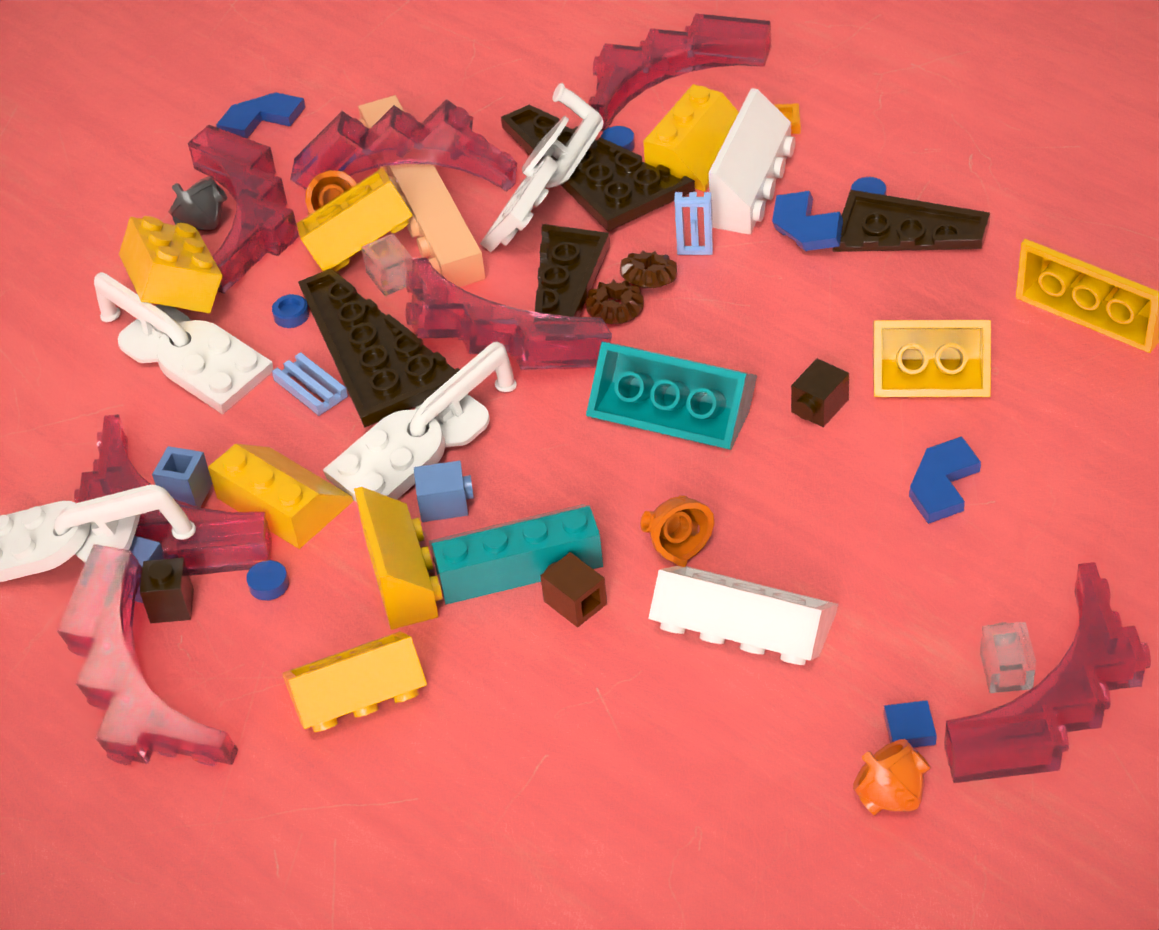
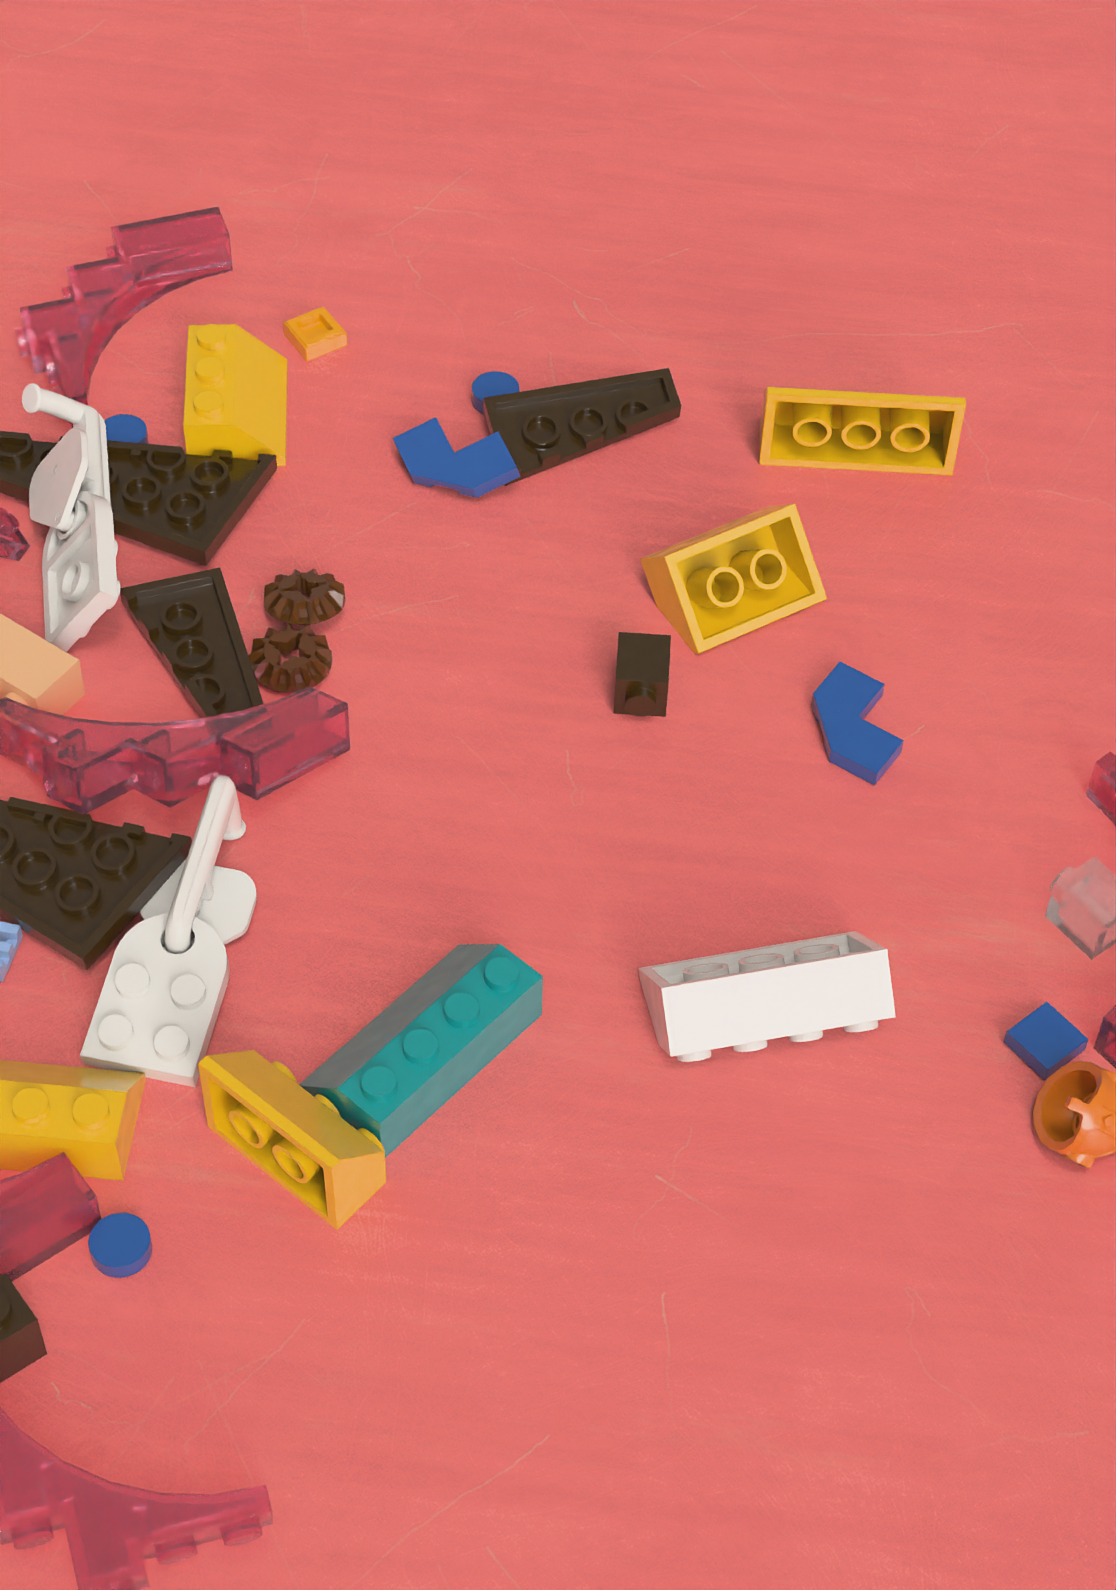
camera: 40 degrees left, 5 degrees up
(355, 681) = (356, 1321): yellow slope -> none
(442, 491) = (271, 1009): medium blue brick -> none
(573, 589) = (542, 1061): reddish brown brick -> none
(670, 395) = (465, 753): teal slope -> none
(675, 528) = (601, 923): orange helmet -> none
(694, 202) = (314, 519): light blue tile -> none
(749, 164) = (339, 413): white slope -> none

